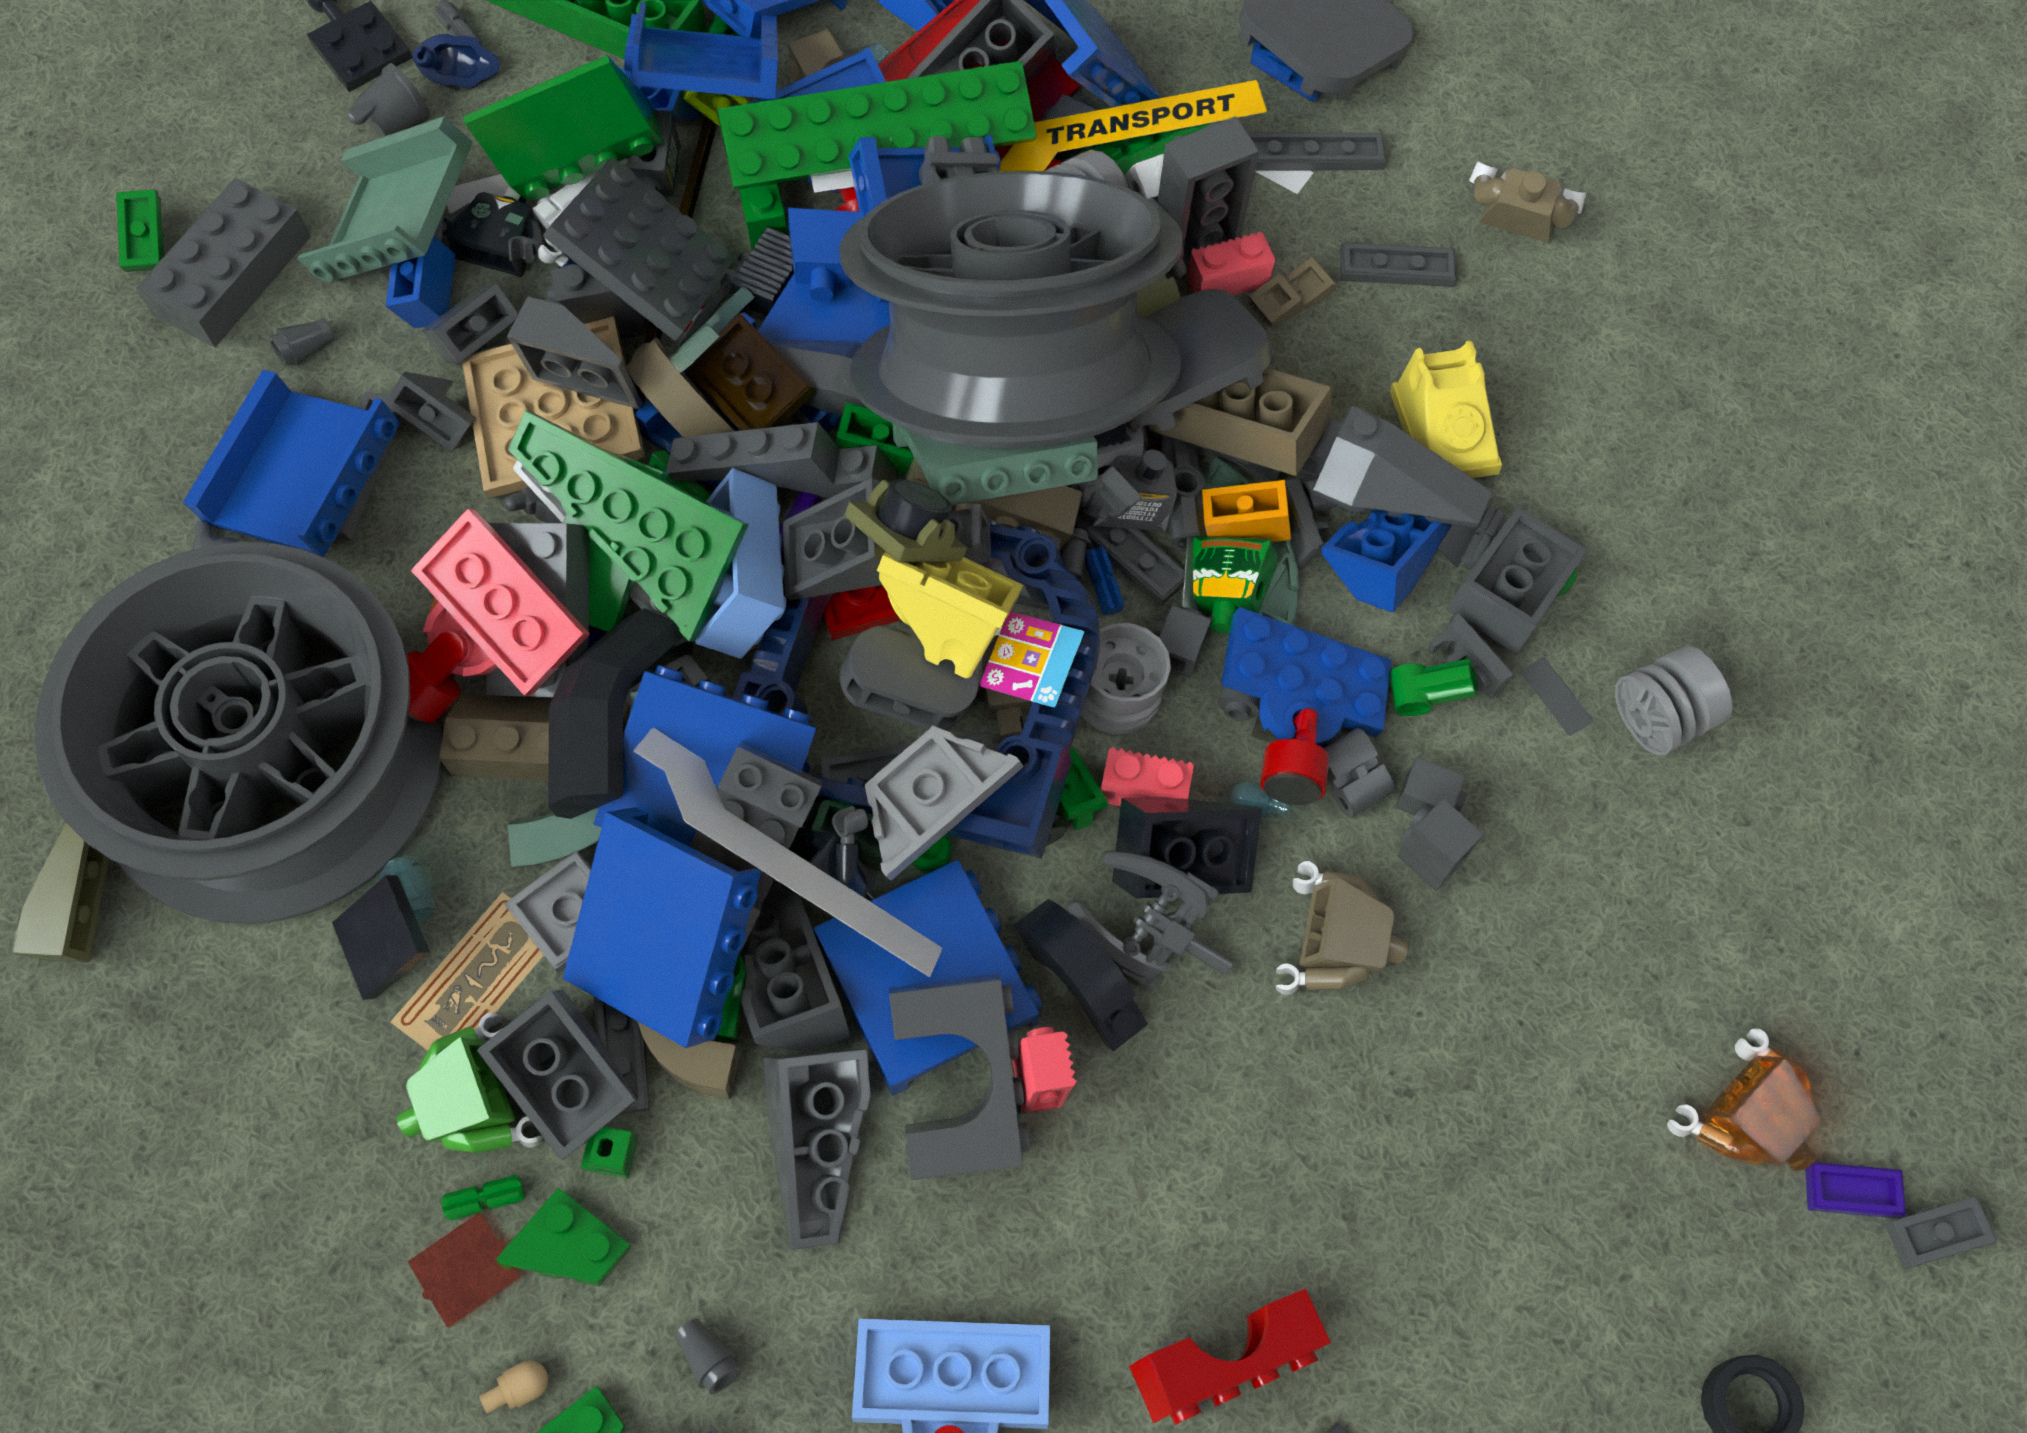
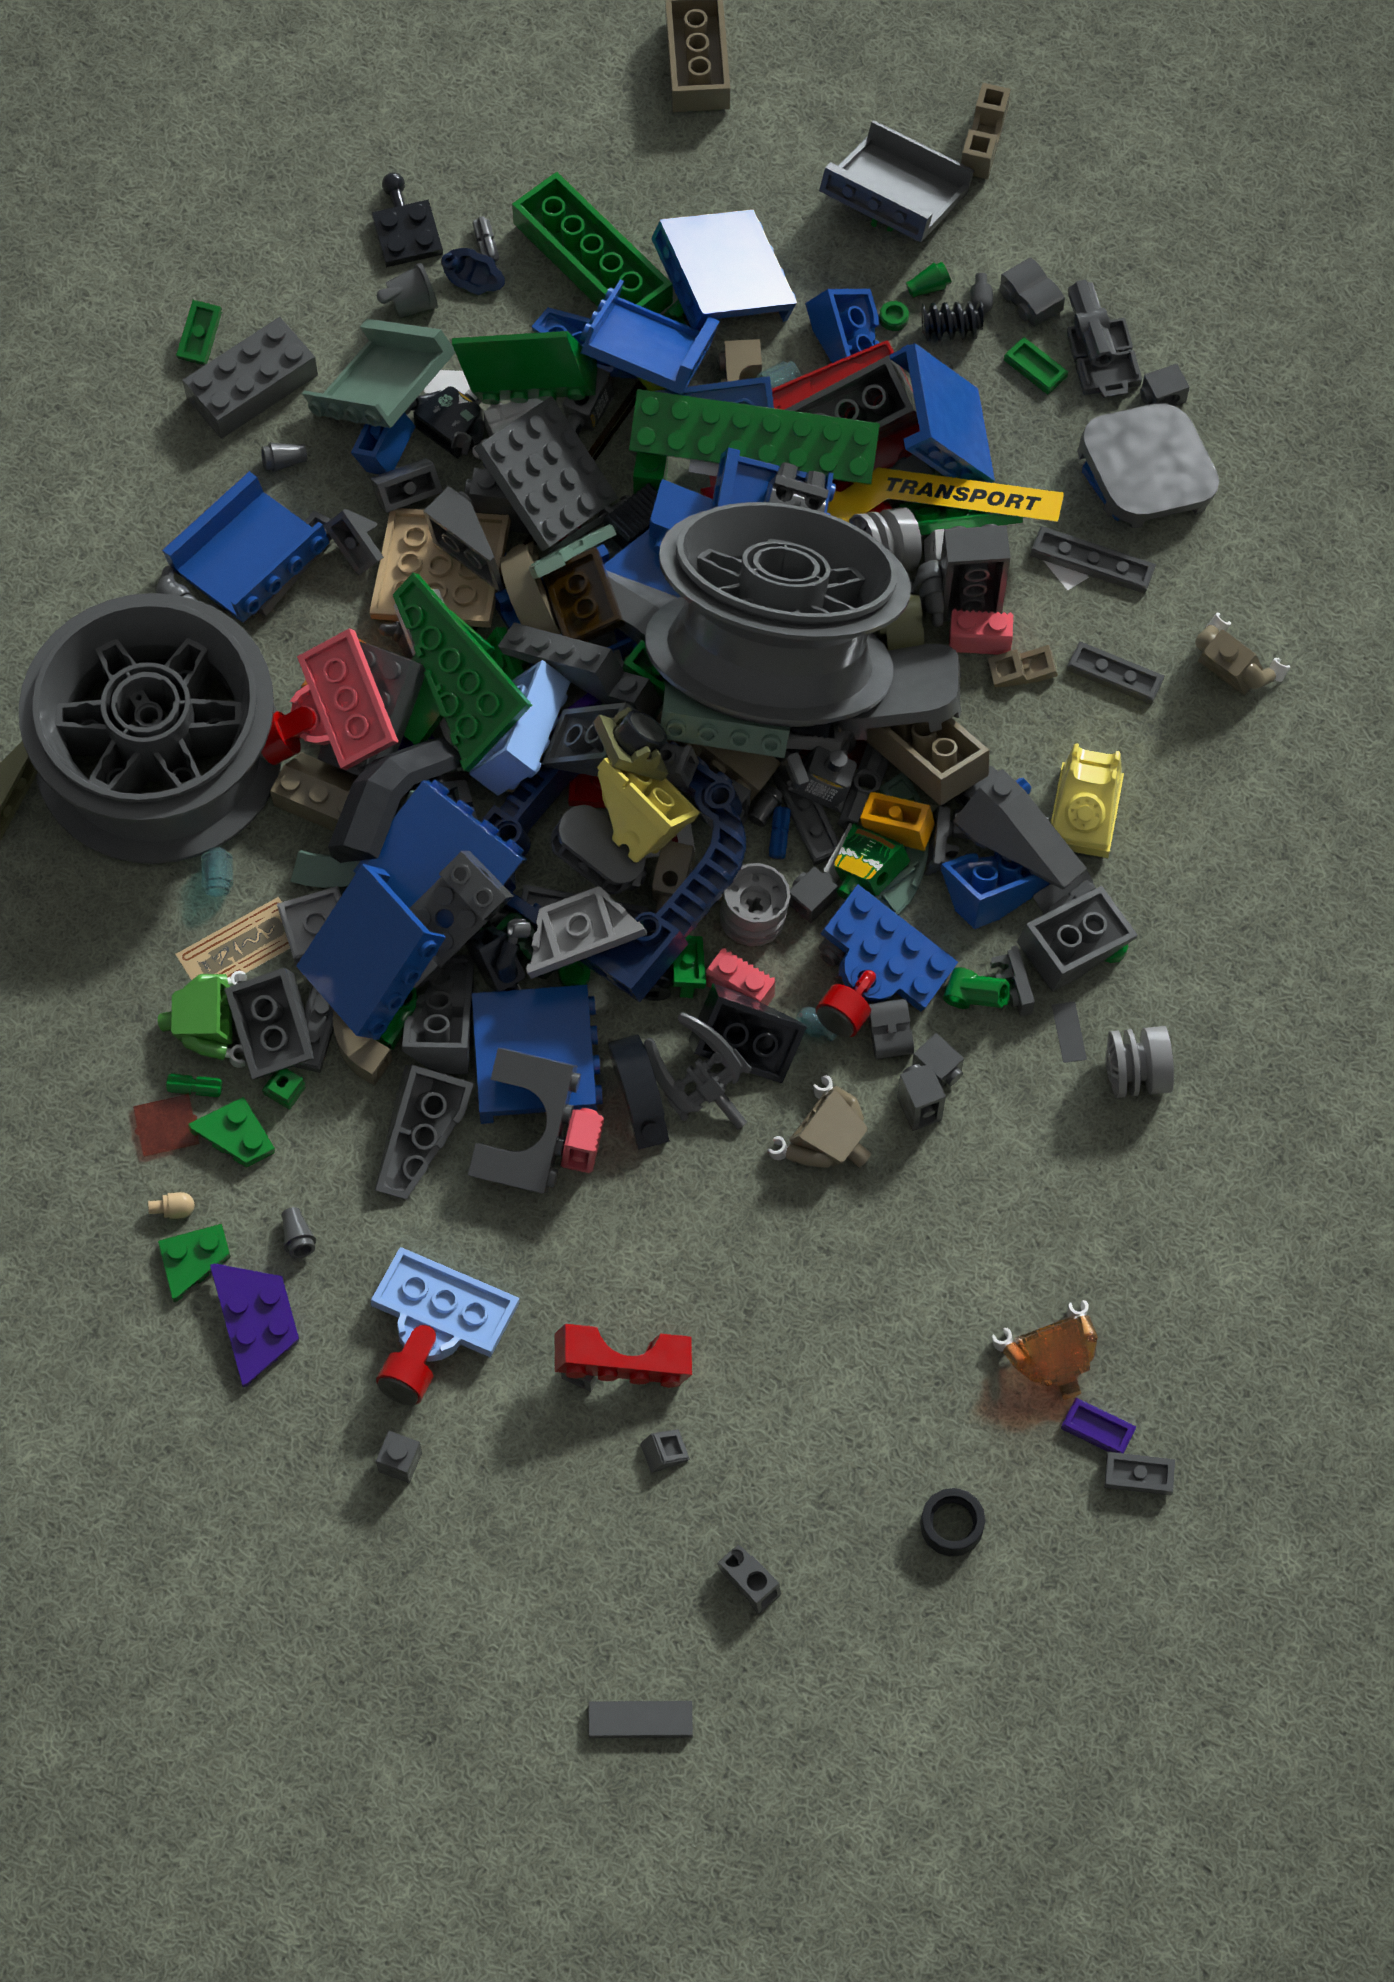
camera: 25 degrees right, 0 degrees up
(380, 937) = (189, 895): black tile -> none
(705, 812) = (425, 885): white sticker -> none
(1031, 659) = (684, 865): sticker -> none

